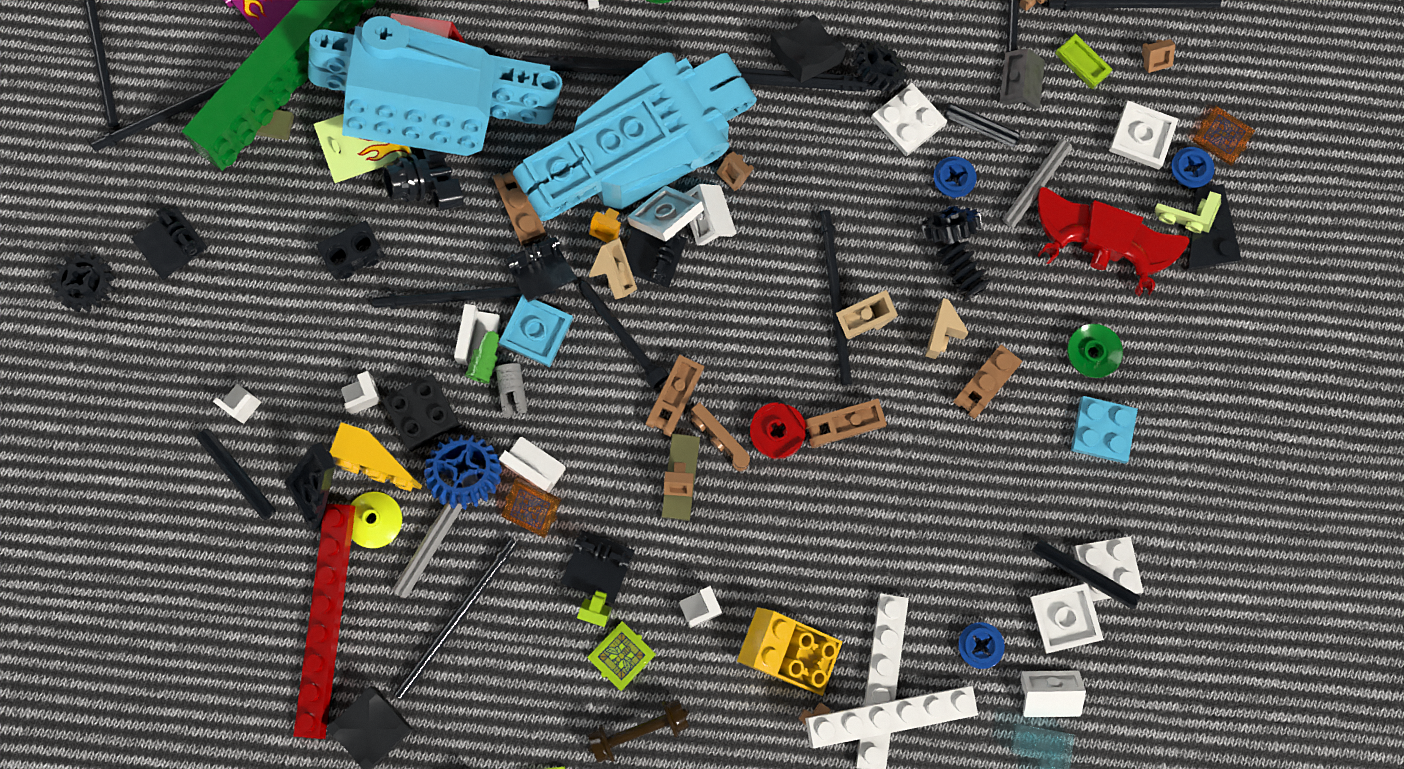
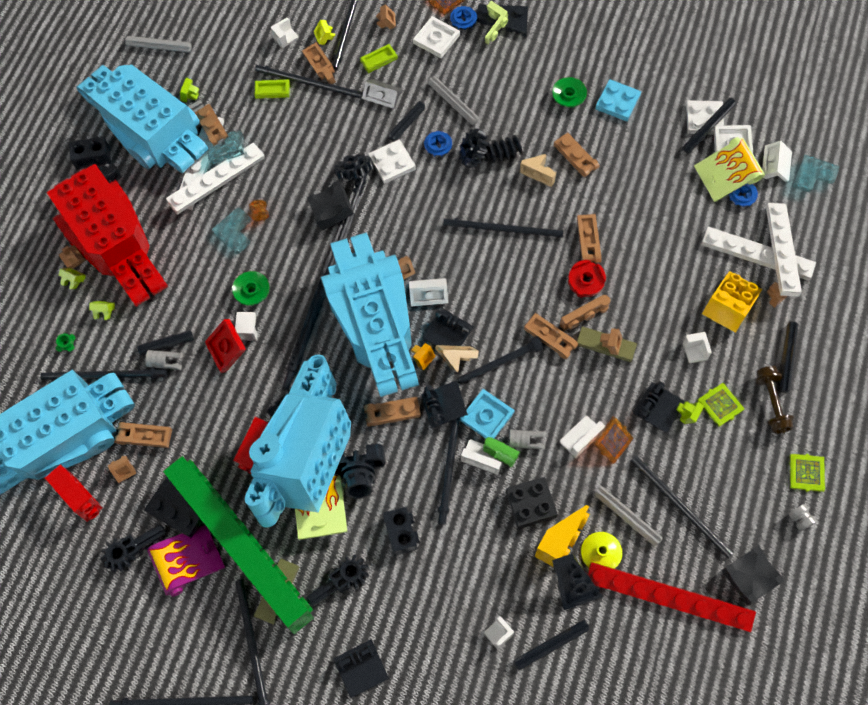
camera: 70 degrees left, 10 degrees down
(275, 192) = (340, 580): none -> black gear
(361, 394) = (508, 543): white panel -> none
(444, 463) = (577, 494): blue gear -> none
(665, 213) = (425, 313): white plate -> none
(705, 746) = (788, 357): none -> black axle
(867, 314) = (522, 207): tan slope -> none
(1016, 618) = (730, 168): none -> yellowish green door
(1107, 235) = (496, 69): red torso -> none

